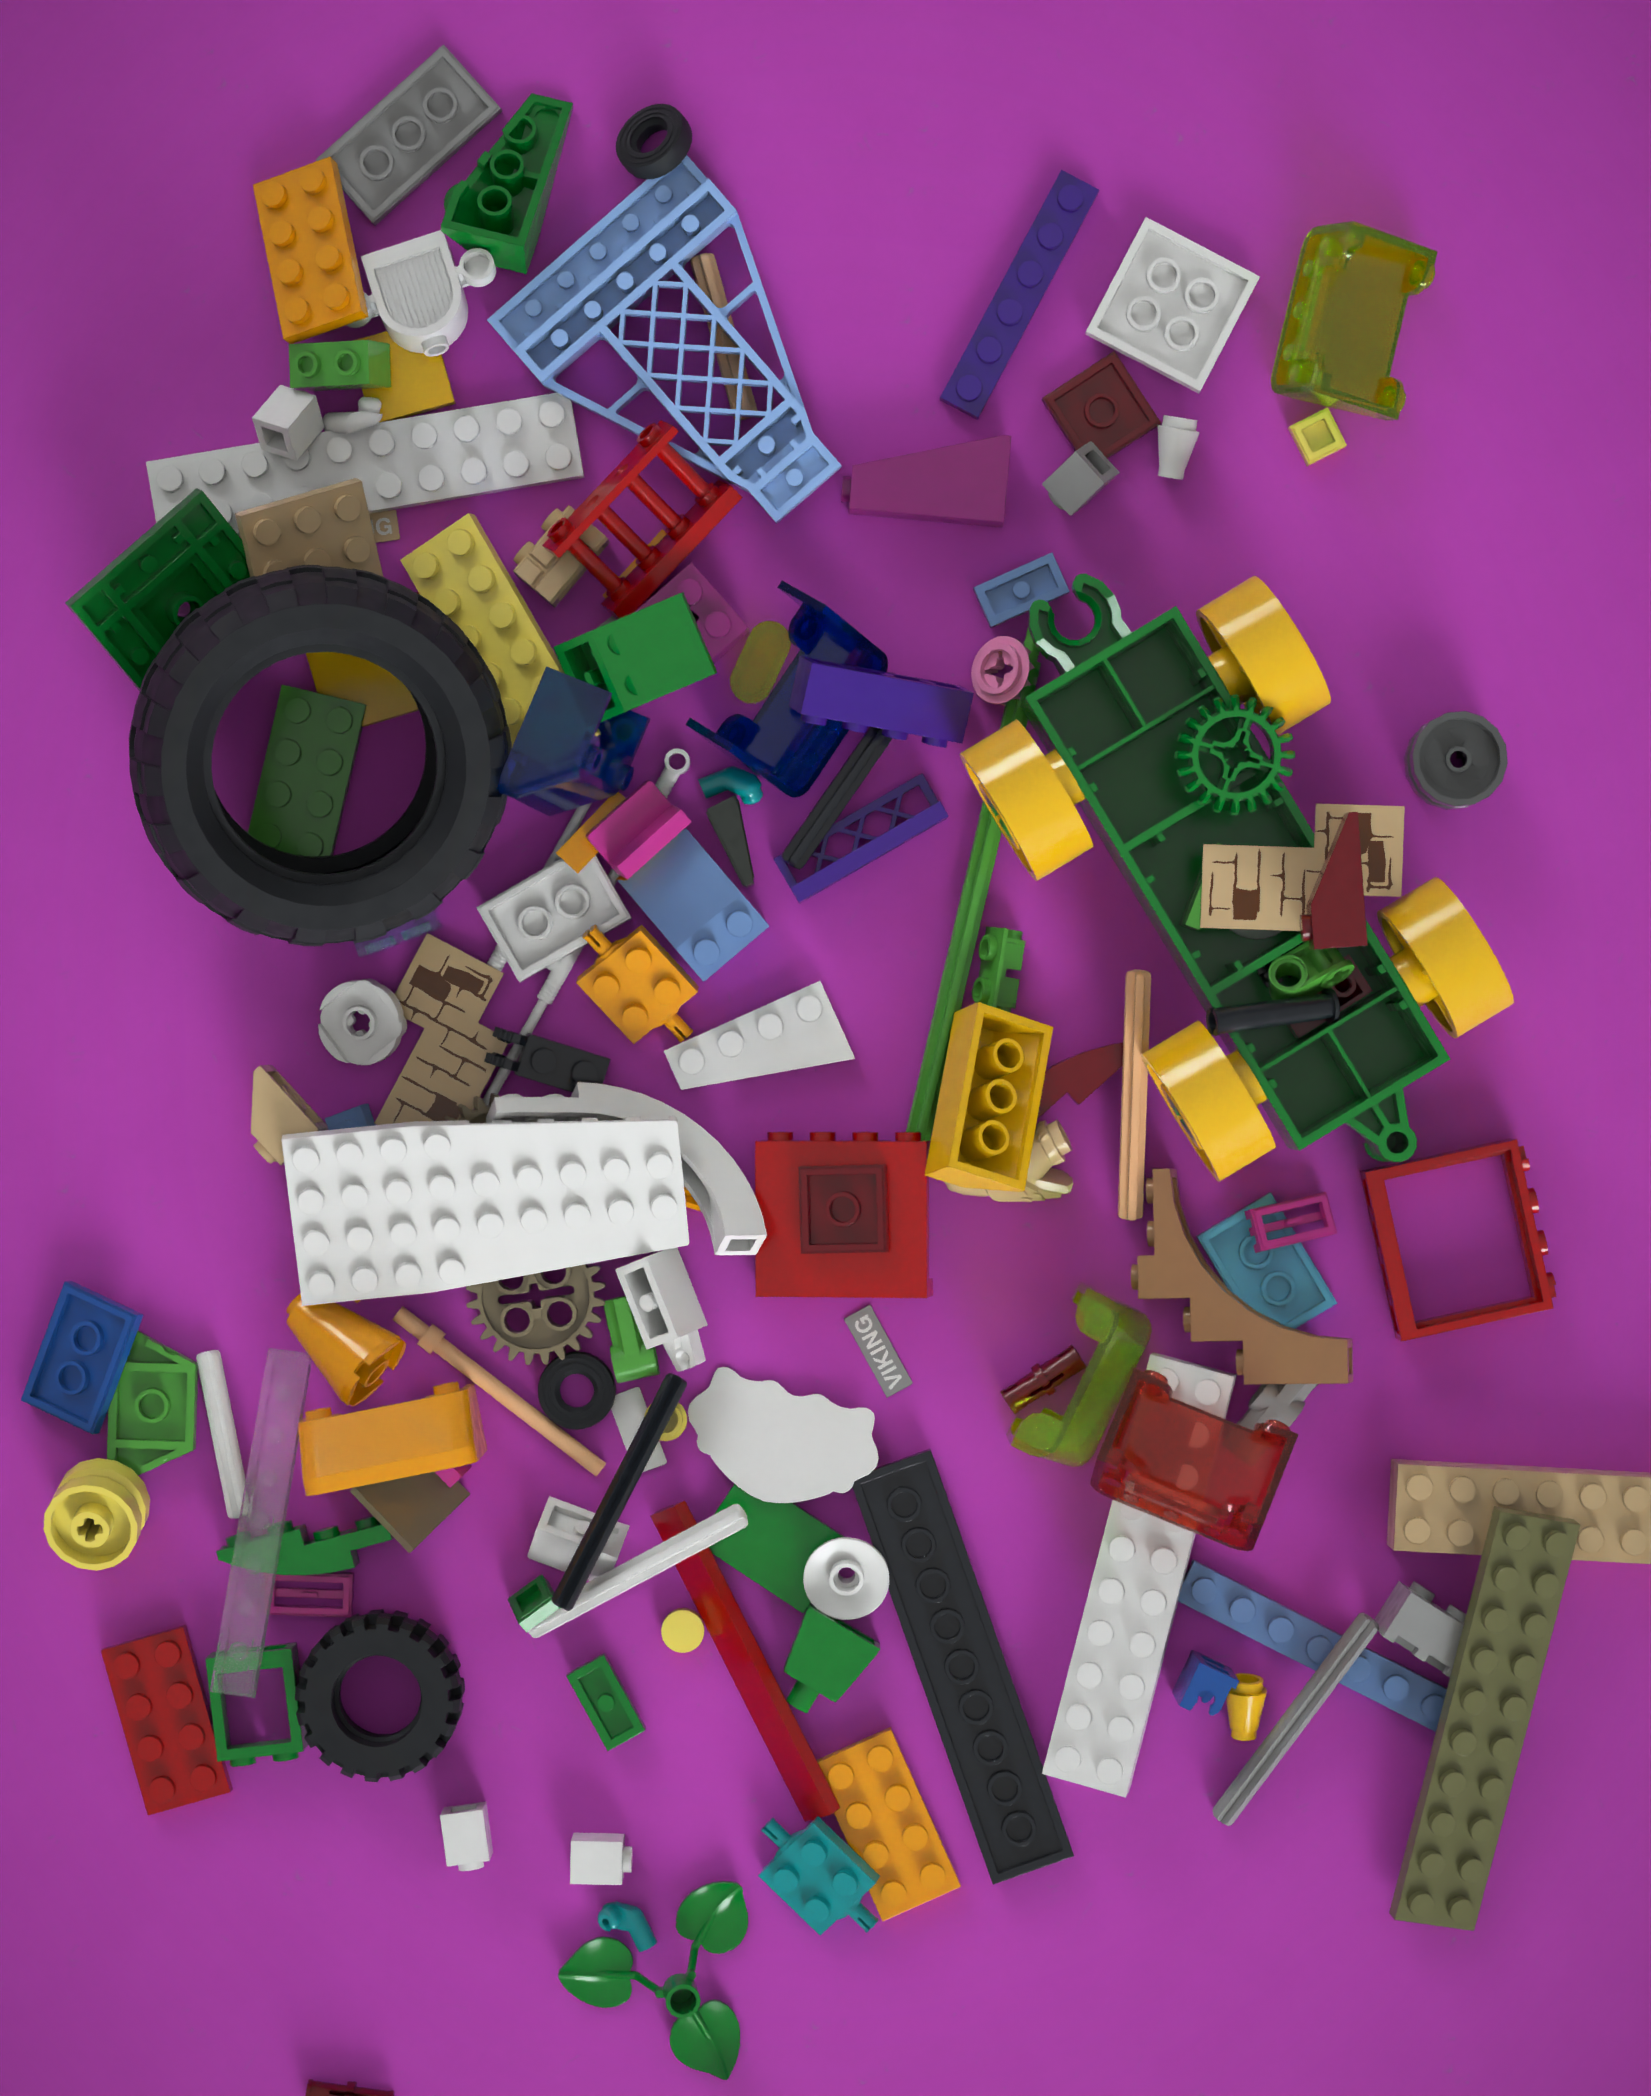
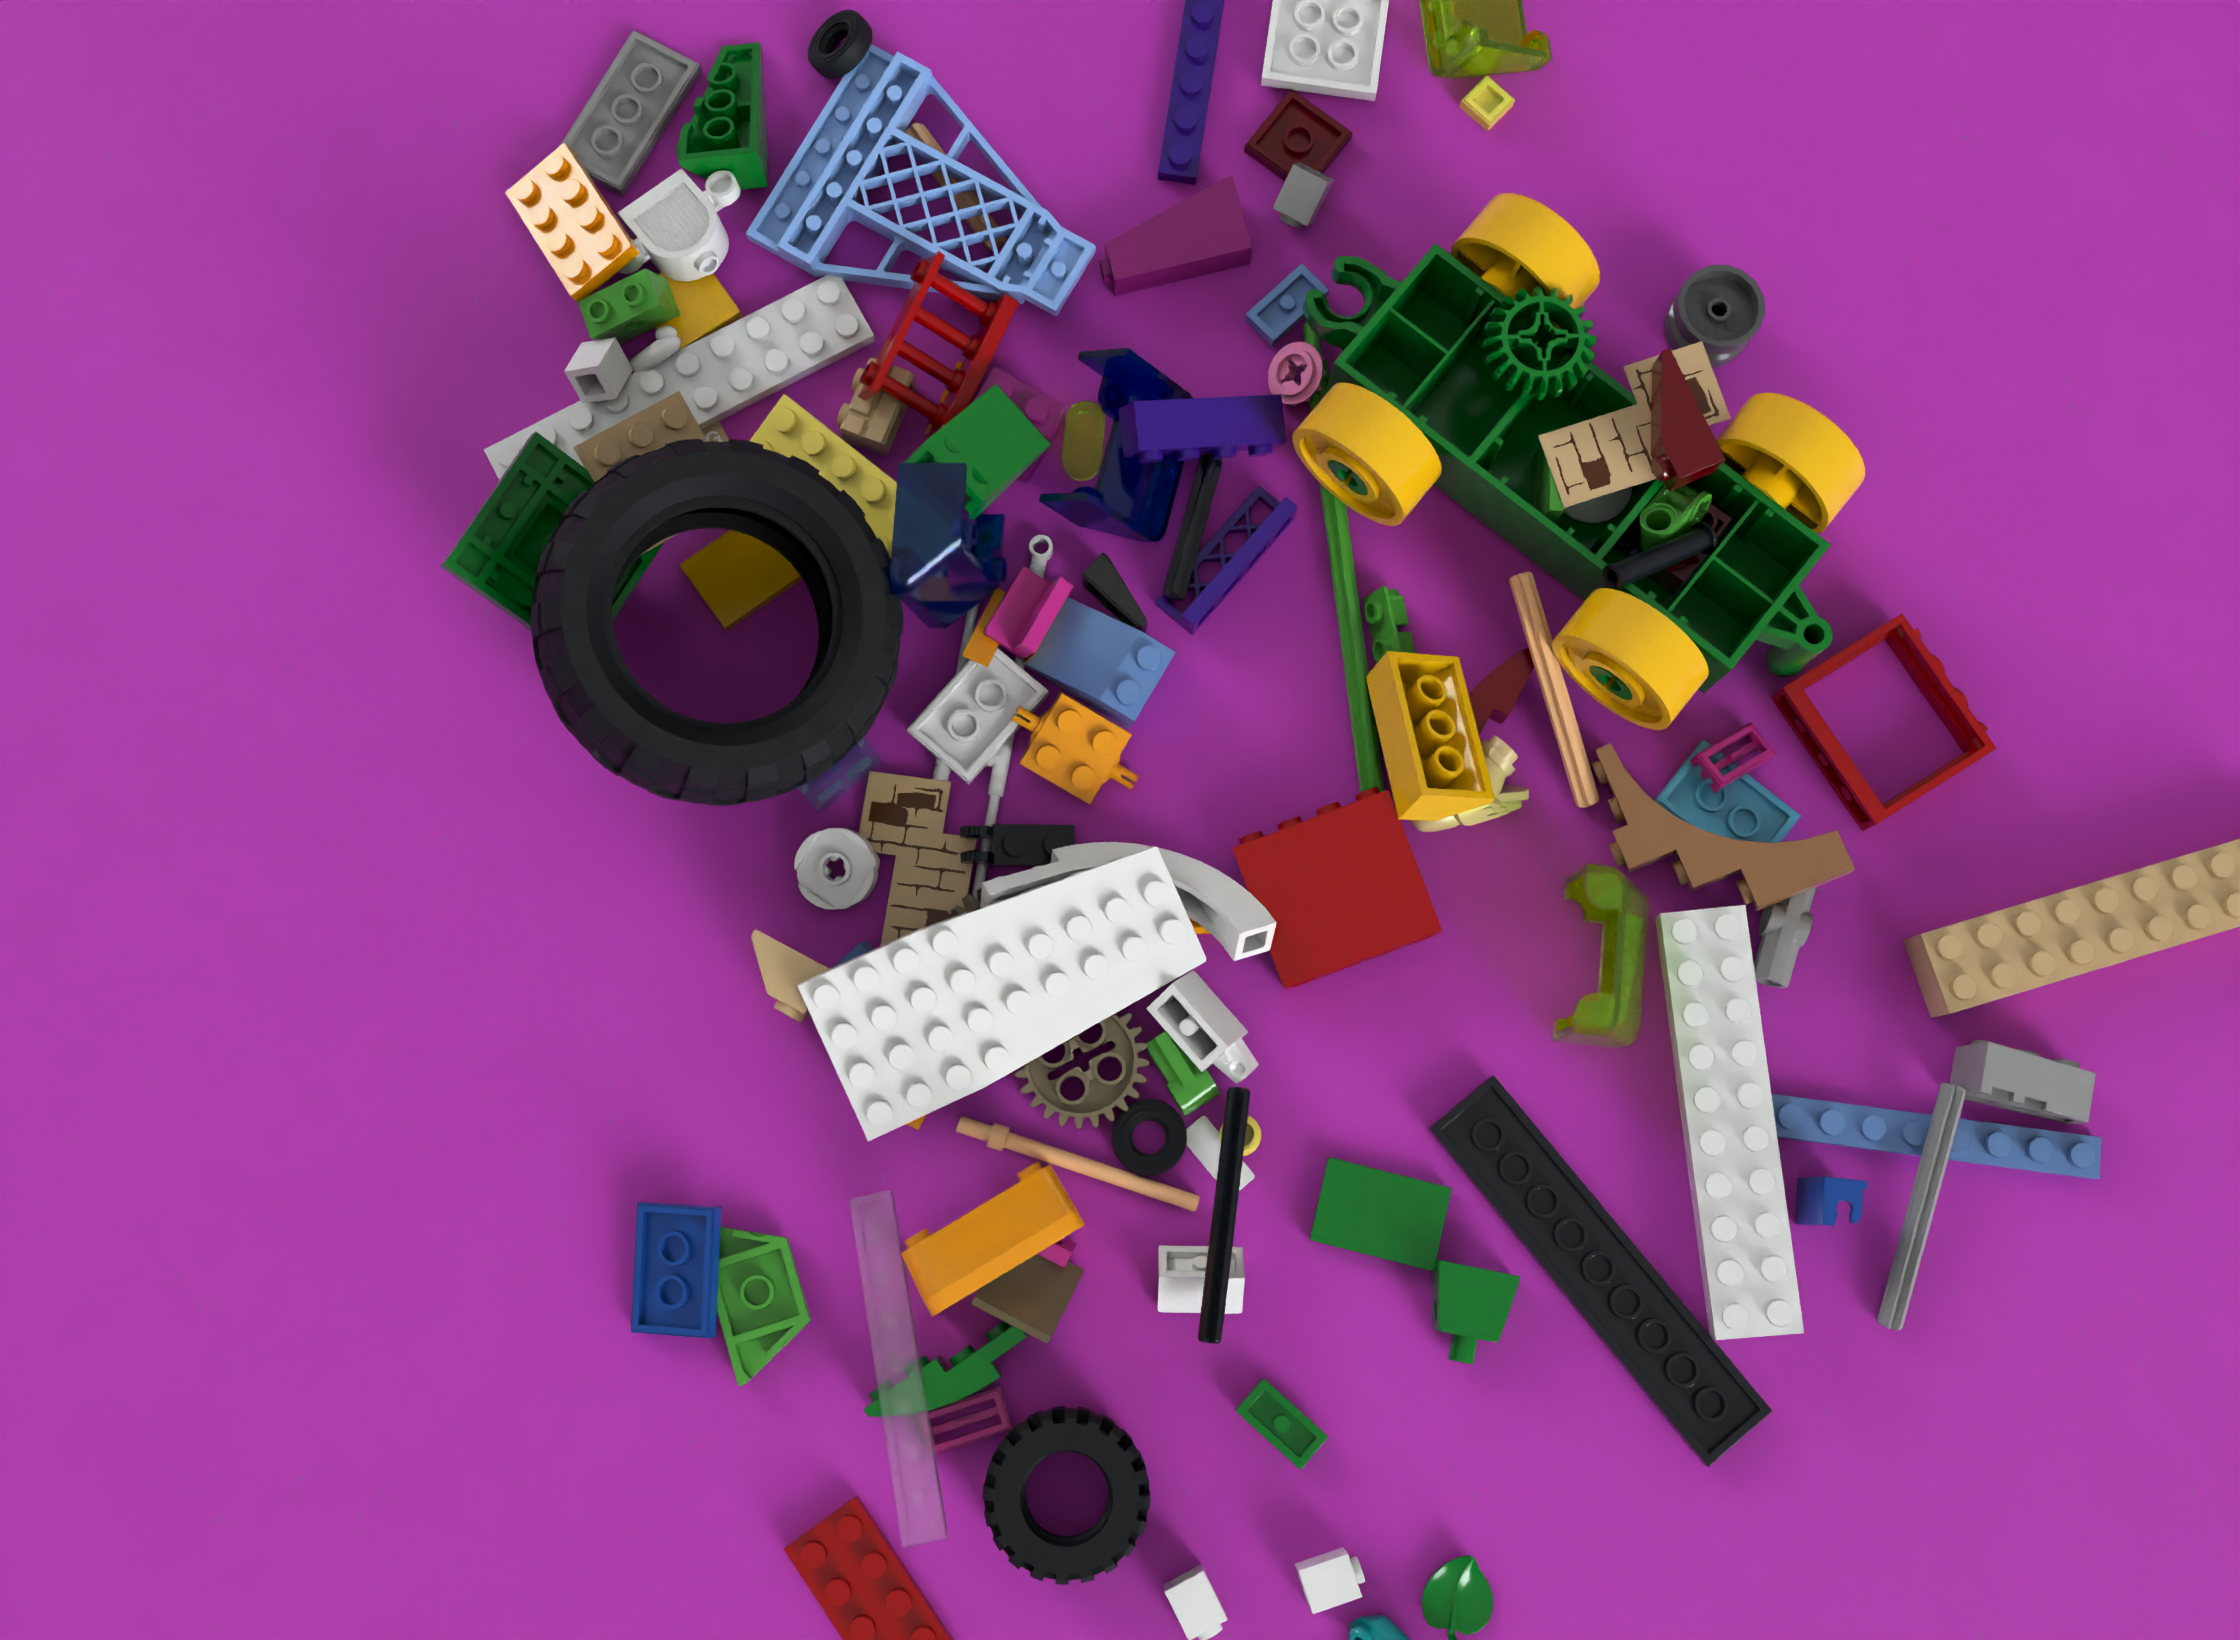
camera: 25 degrees left, 10 degrees down
(96, 1514) = (737, 1414): light yellow wheel -> none
(222, 1430) = (832, 1293): white axle -> none
(282, 1749) = (988, 1583): green window -> none
(306, 772) = (713, 656): bright green plate -> none
(345, 1347) = (920, 1170): light orange cone -> none
(533, 1603) = (1180, 1352): green tile -> none
(648, 1565) = (1269, 1281): white axle -> none
(682, 1630) = (1327, 1328): light yellow tile -> none
(734, 780) = (1093, 547): teal arm -> none
(750, 1671) = (1398, 1338): red tile -> none
(772, 1039) = (1214, 756): white wing -> none
(781, 1442) = (1353, 1118): white sticker -> none
(819, 1875) = (1543, 1519): teal plate -> none
(842, 1596) = (1476, 1235): white dish -> none
(843, 1209) = (1336, 876): dark red tile -> none
(878, 1351) = (1409, 1005): light grey sticker -> none
(888, 1823) = (1585, 1446): light orange plate -> none
(1043, 1379) = (1569, 975): dark red pin -> none
(1175, 445) = (1371, 142): white cone -> none
(1191, 1464) = (1748, 995): clear red windscreen -> none
(1246, 1706) = (1874, 1218): yellow cone -> none
(1484, 1718) = (2096, 1142): olive plate -> none

